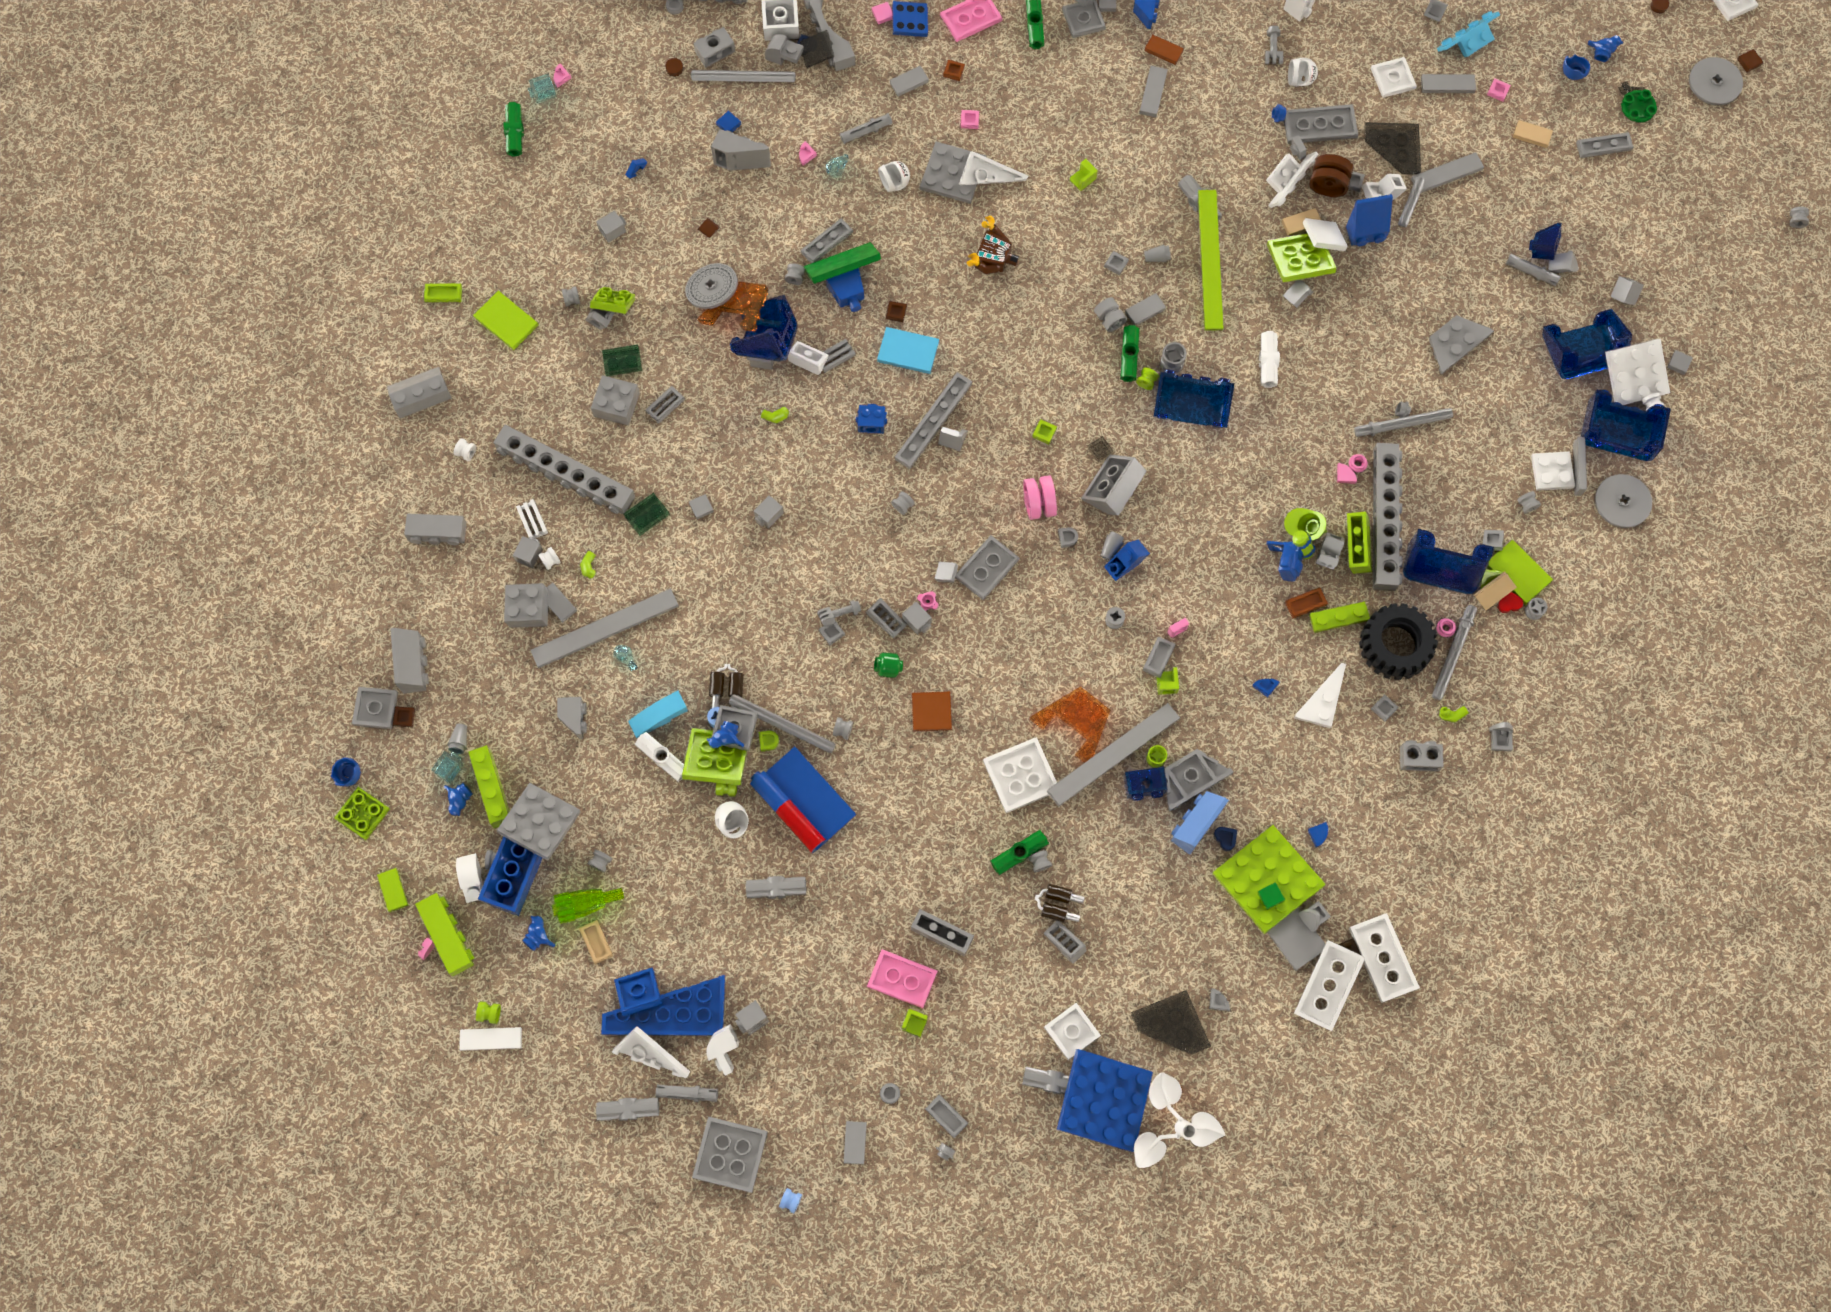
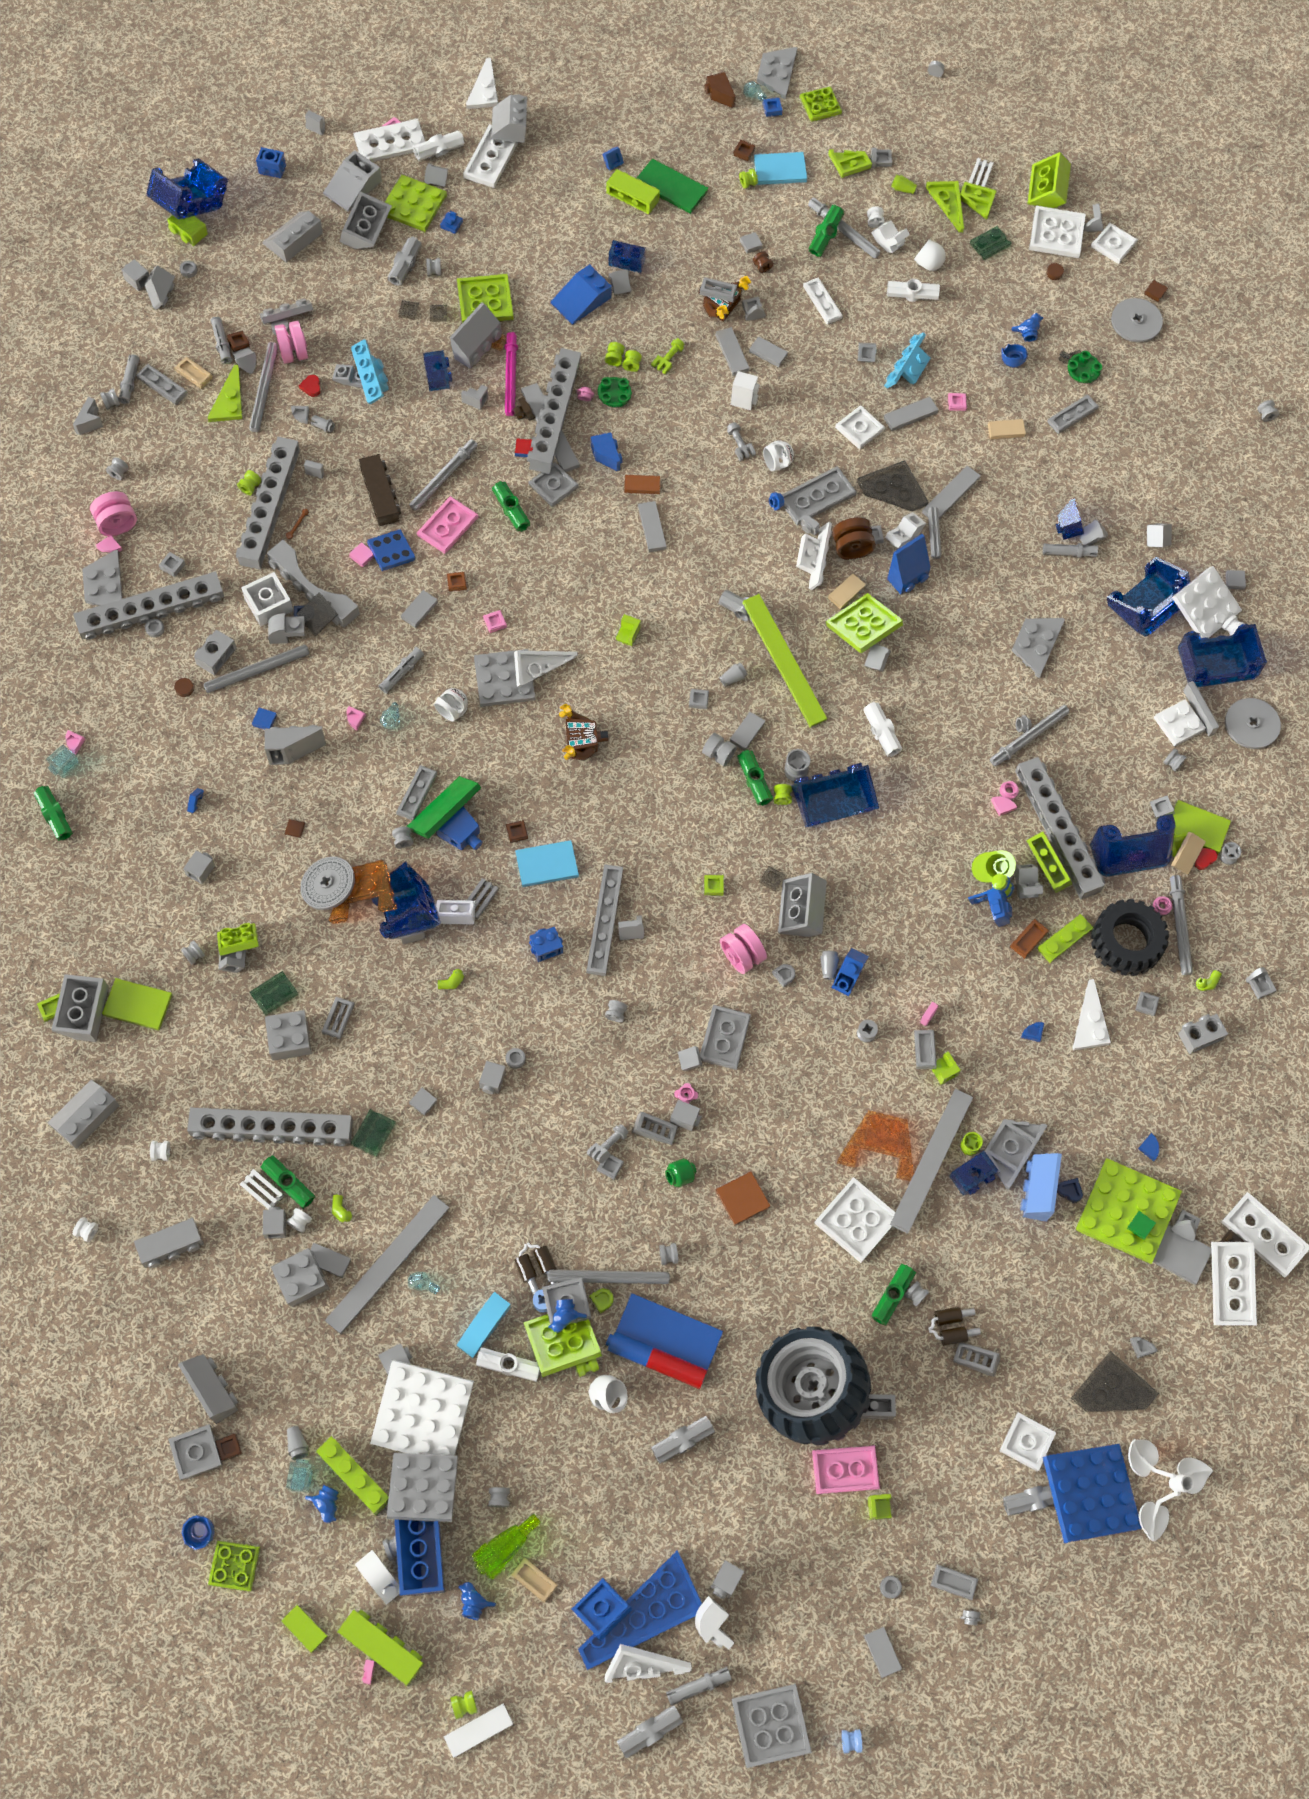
camera: 30 degrees left, 5 degrees down
(374, 487) = (85, 1229): none -> white wheel
(457, 302) = (80, 1007): none -> light grey slope
(559, 532) = (279, 1173): none -> green piece
(571, 760) = (421, 1410): none -> white plate
(797, 505) = (515, 1058): none -> light grey tile
(914, 907) = (790, 1358): none -> wheel
(1325, 234) = (875, 594): white tile -> none

